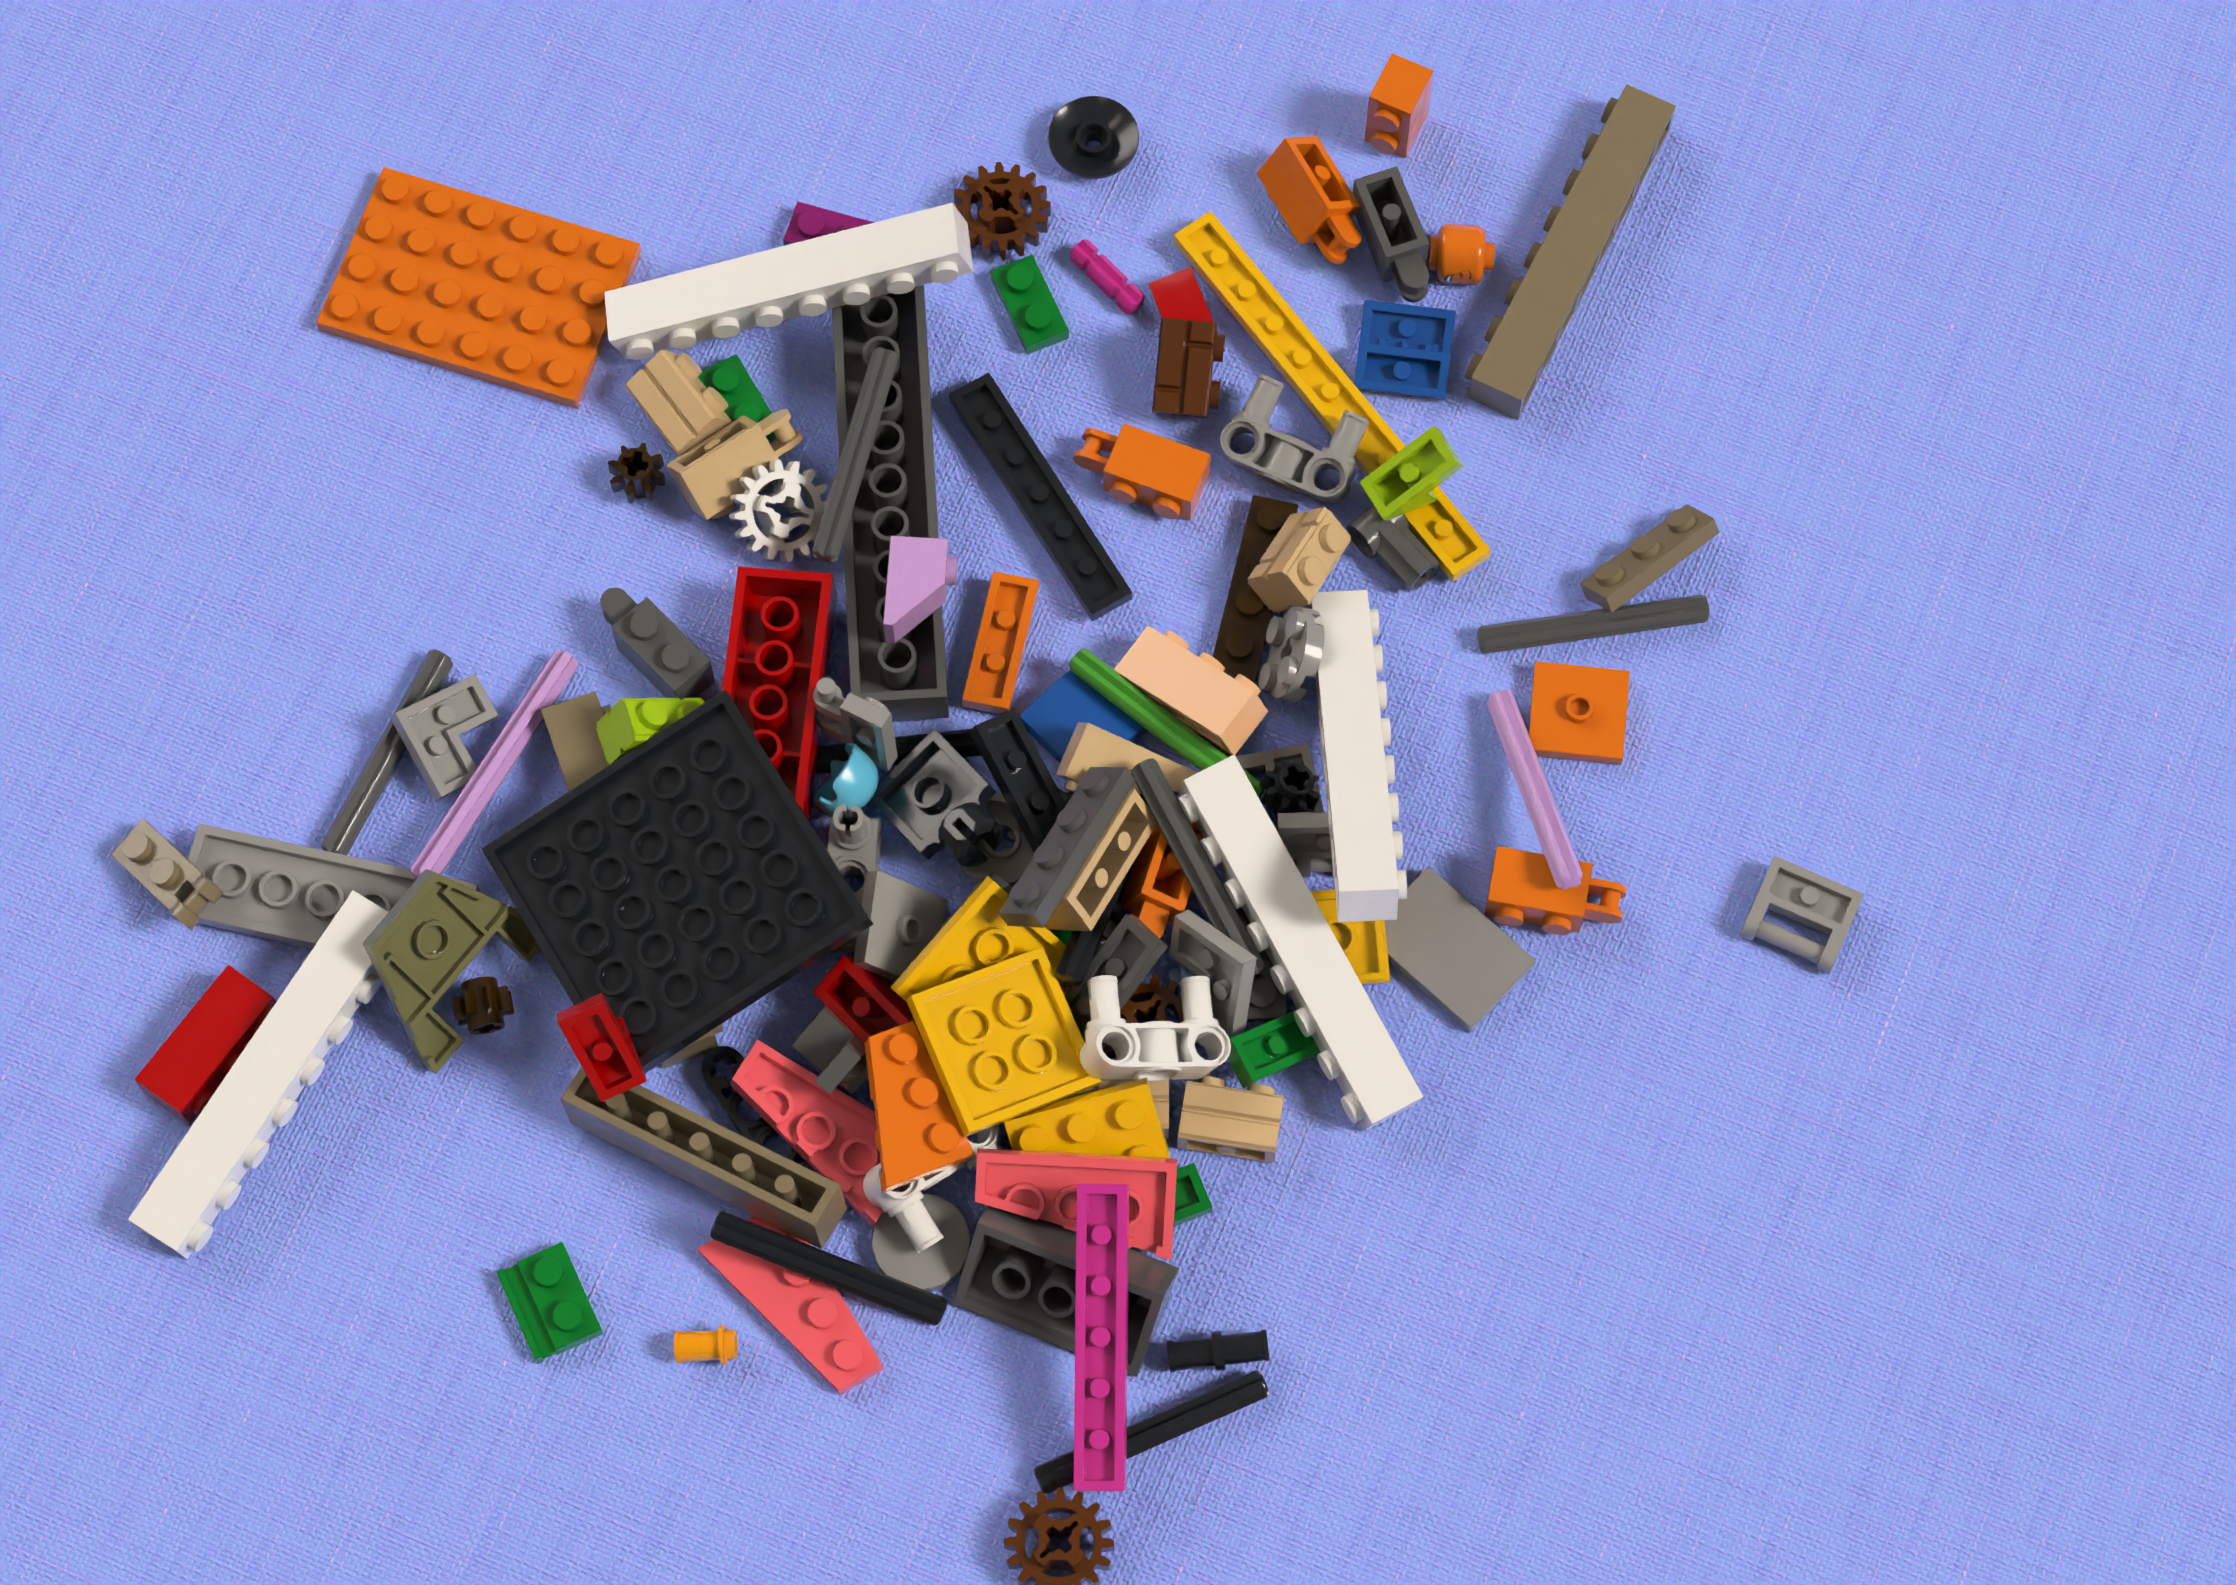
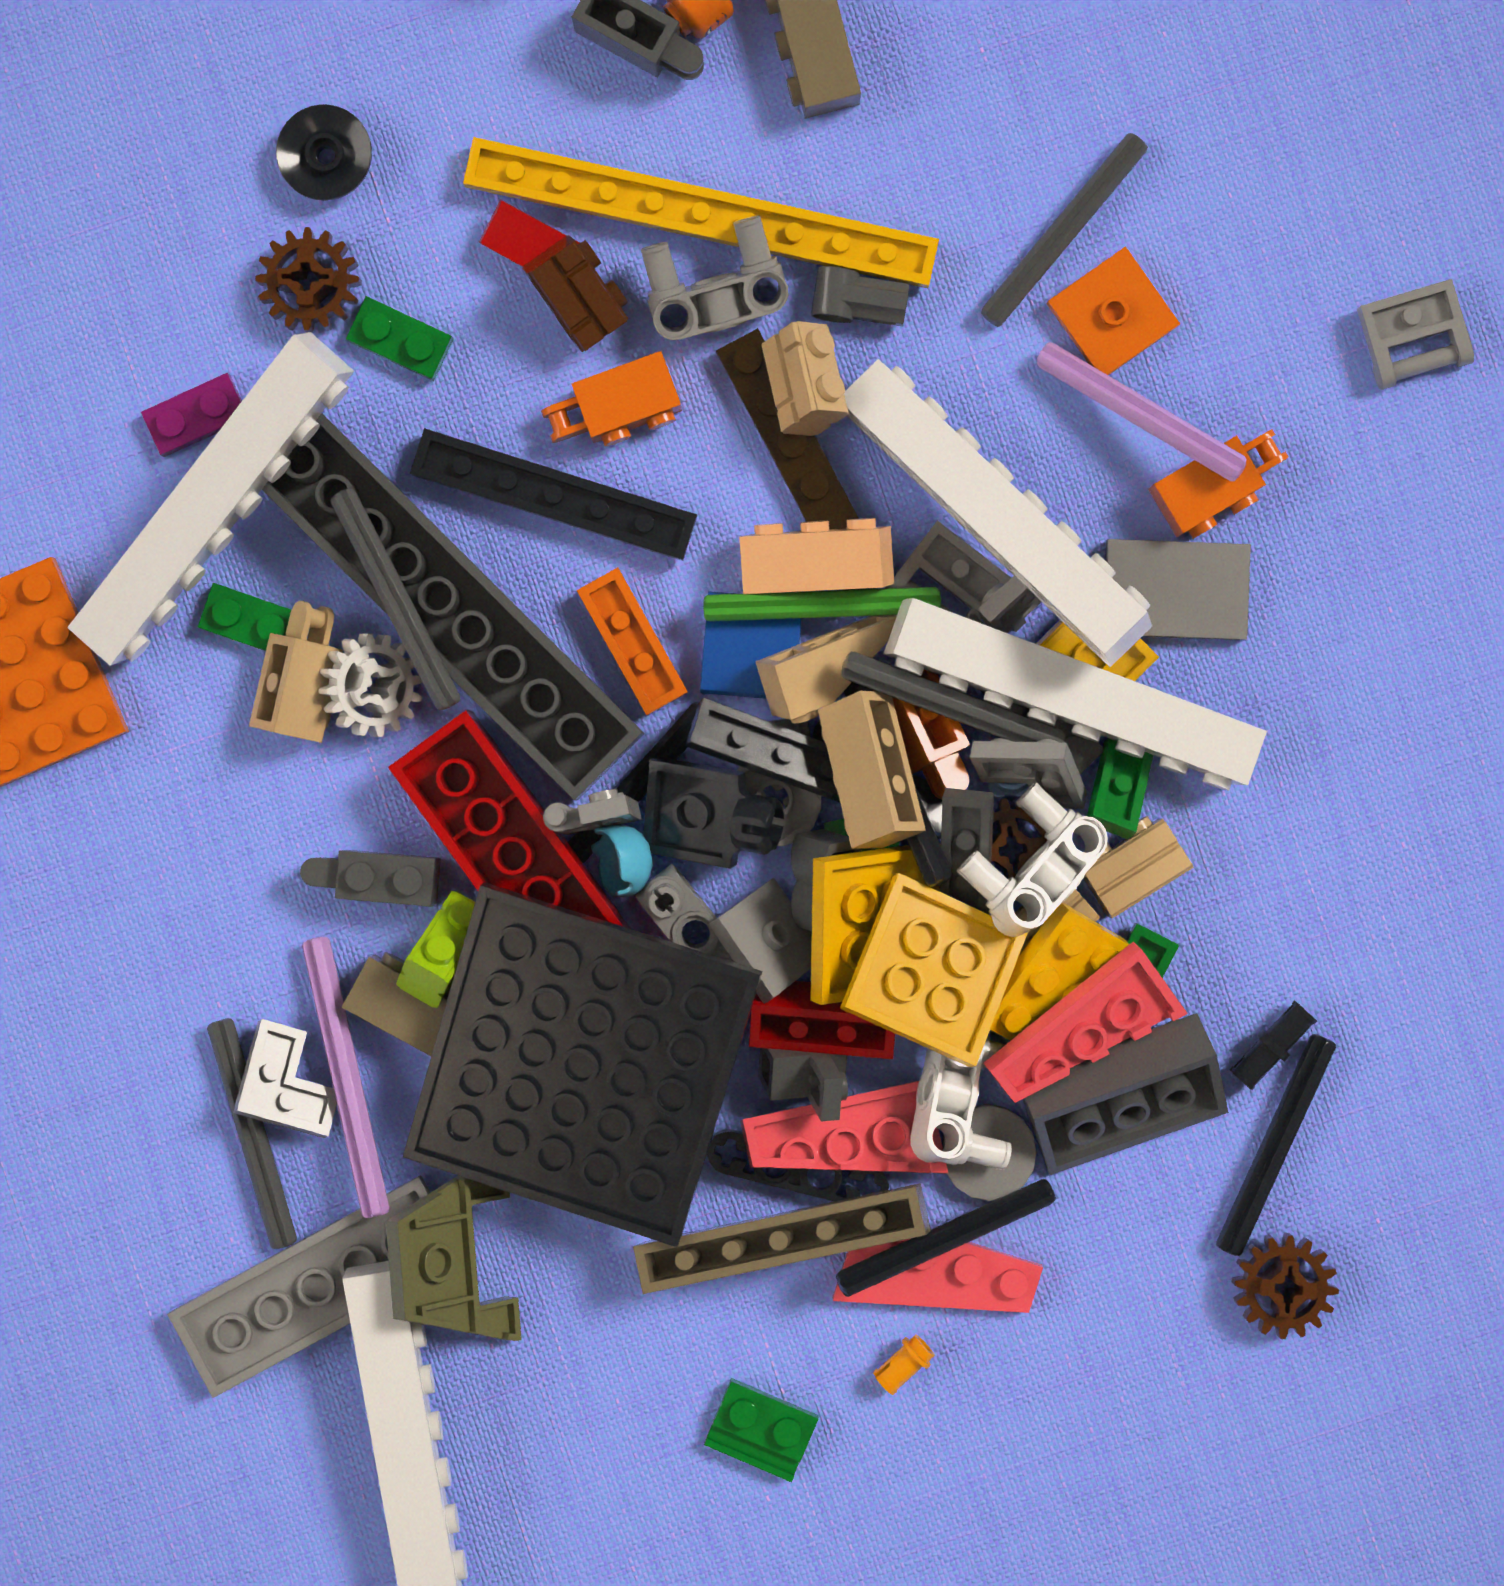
camera: 40 degrees left, 20 degrees up
(166, 873) = (183, 1374): dark tan plate -> none
(205, 1045) = (338, 1470): red brick -> none
(482, 1005) = (510, 1264): dark brown gear -> none
(602, 1046) = (648, 1240): red slope -> none
(627, 468) = (218, 744): dark brown gear -> none
(678, 400) = (210, 665): tan brick -> none
(912, 1112) = (914, 1082): orange wing -> none
(916, 582) = (541, 666): lavender slope -> none
(1066, 847) = (852, 783): dark grey plate -> none
(1101, 1337) = (1197, 1124): dark pink plate -> none
(1107, 276) = (439, 262): dark pink axle -> none
(1289, 788) = (967, 563): black gear -> none
(1293, 653) = (867, 462): light grey plate -> none
(1312, 196) = (546, 56): orange brick -> none
(1404, 349) = (724, 122): blue slope -> none
(1412, 475) = (836, 235): lime slope -> none
(1649, 557) = (1063, 137): dark tan plate -> none

